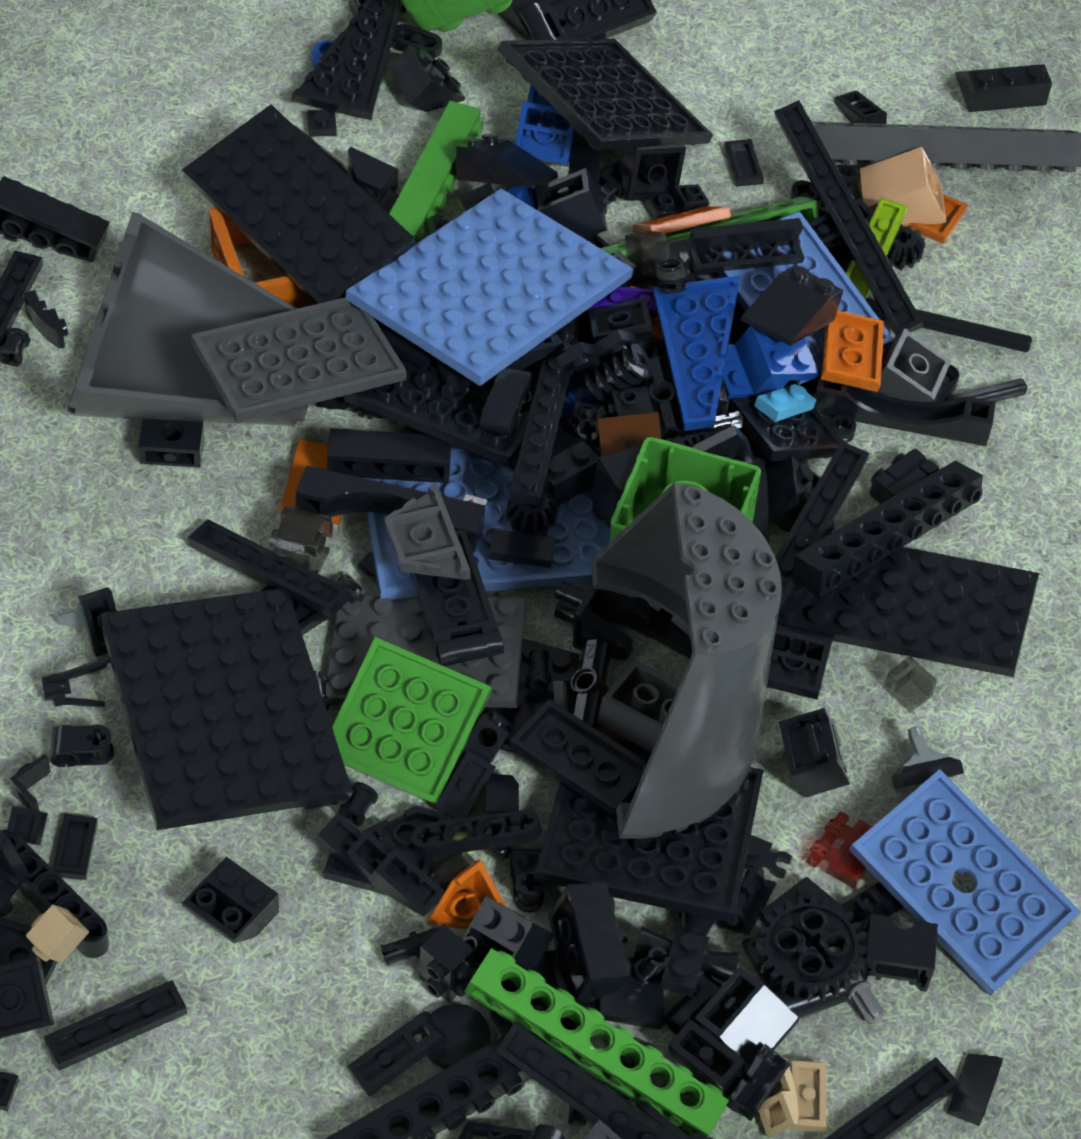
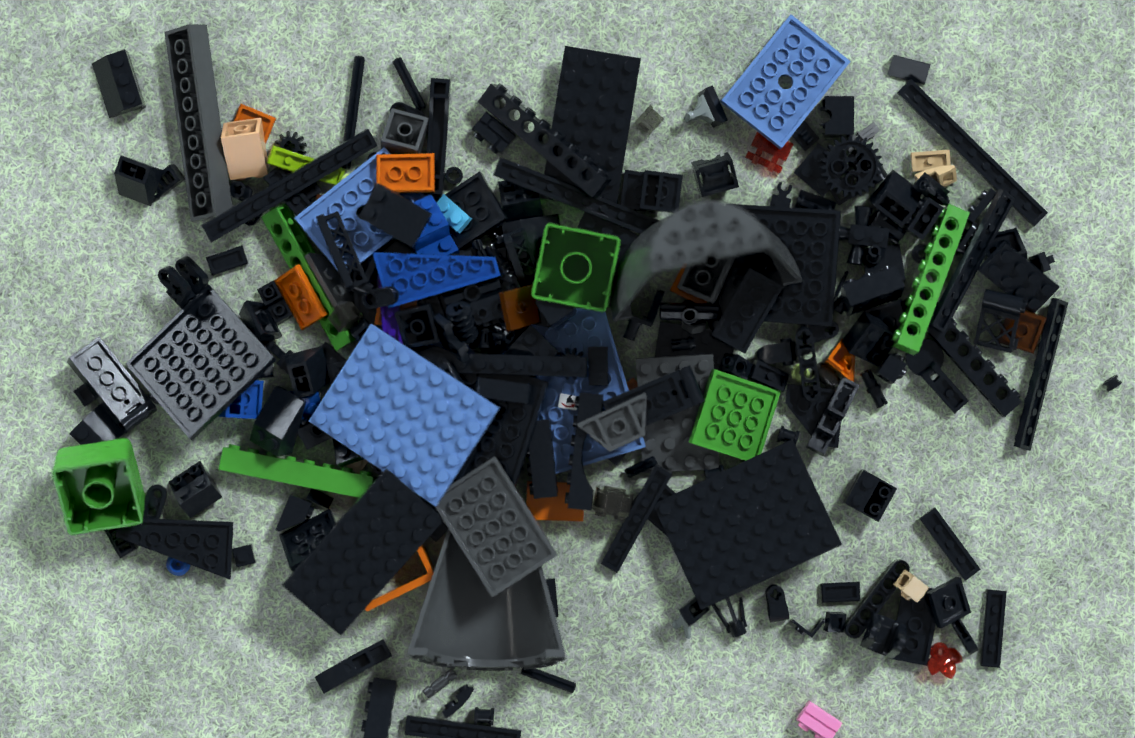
camera: 90 degrees left, 35 degrees up
(44, 436) = (550, 679): none -> black axle
(78, 306) = (441, 682): none -> dark grey axle
(127, 193) = (353, 666): none -> black slope
(703, 103) = (183, 284): none -> black piece
(871, 78) = (137, 180): none -> black slope

